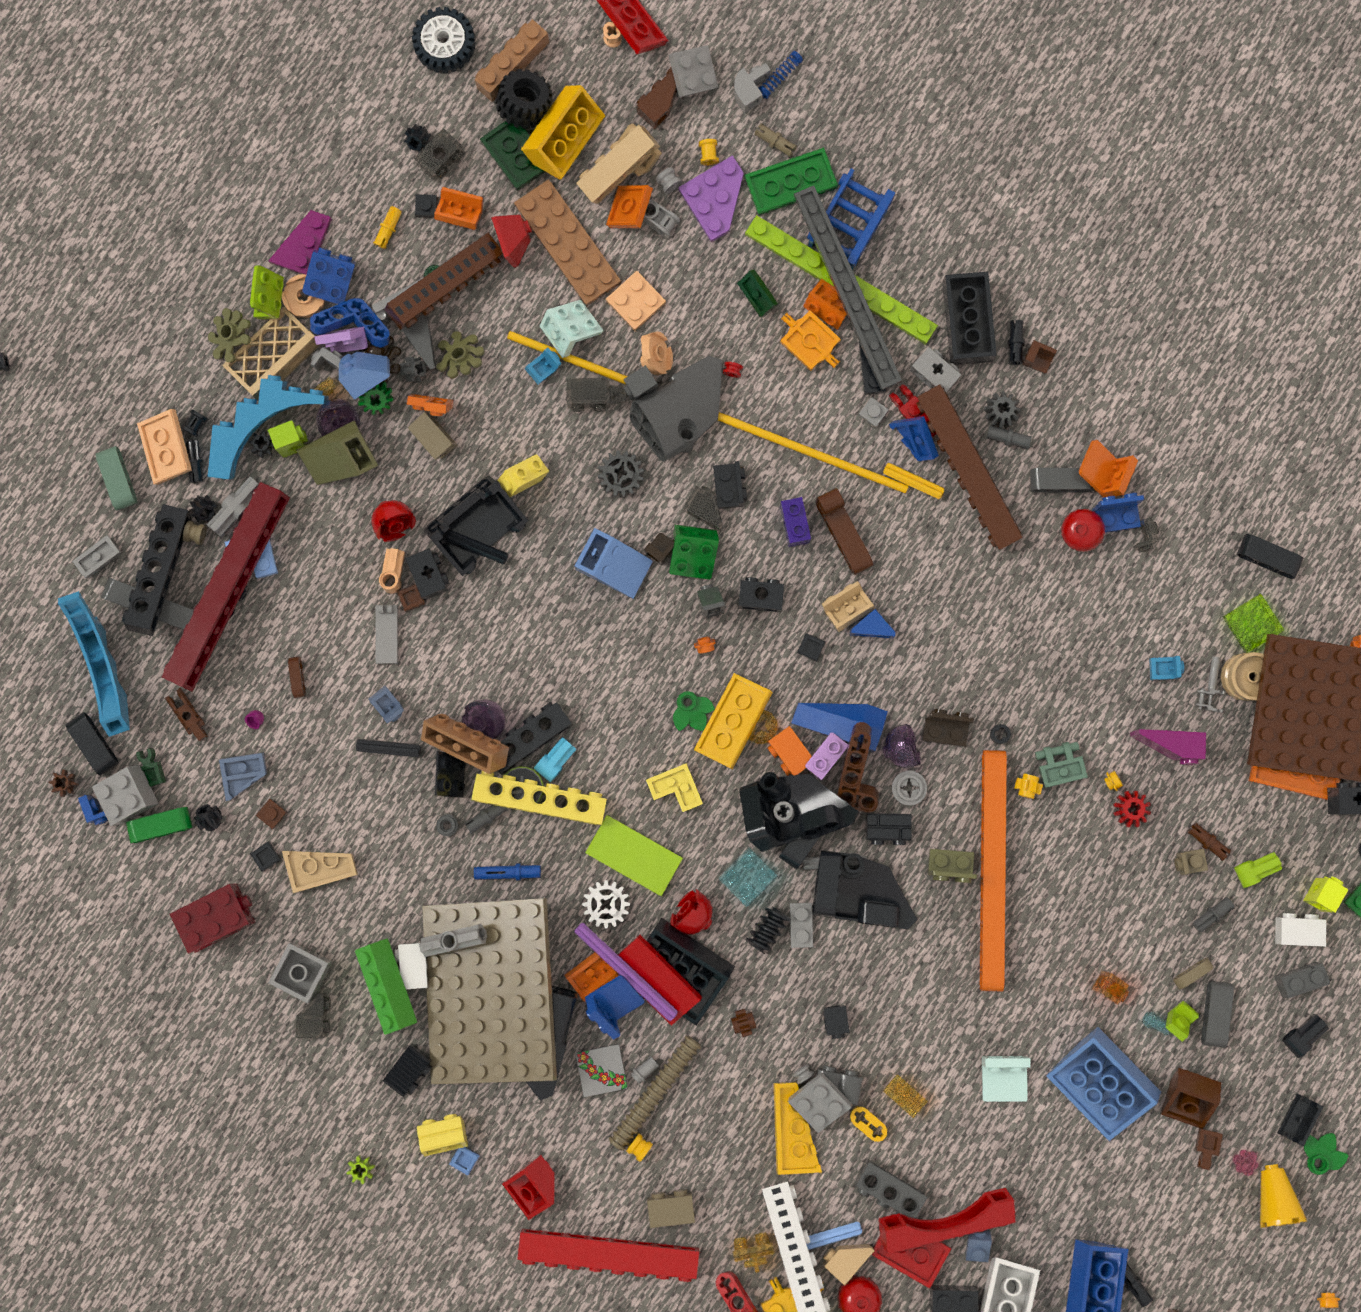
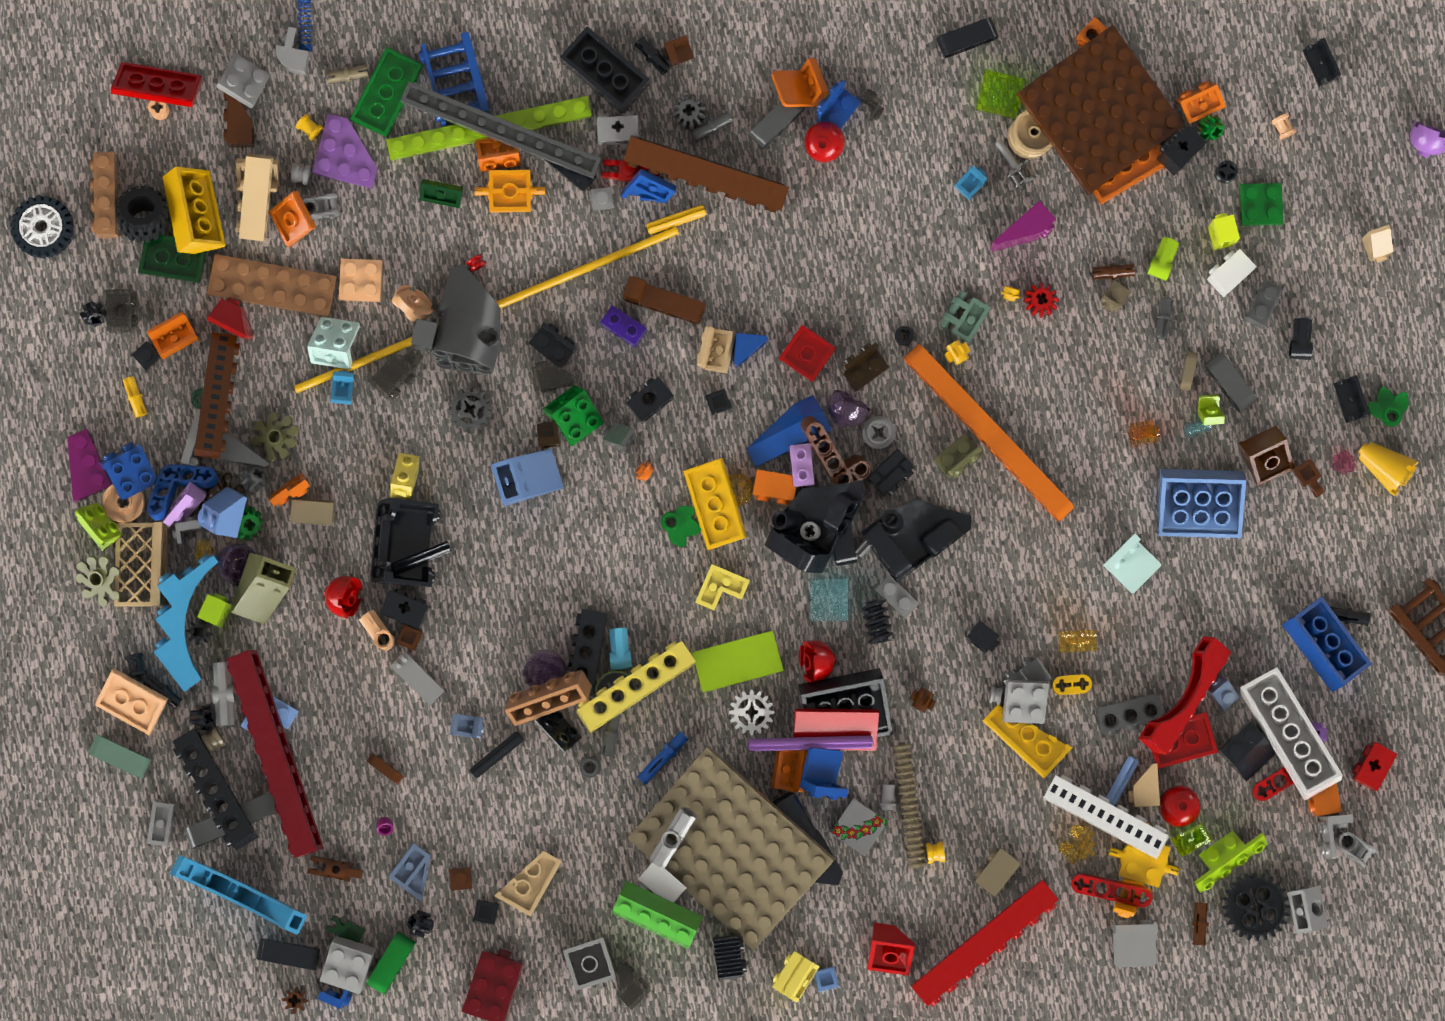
camera: 50 degrees left, 0 degrees up
(913, 676) = (807, 353): none -> red plate

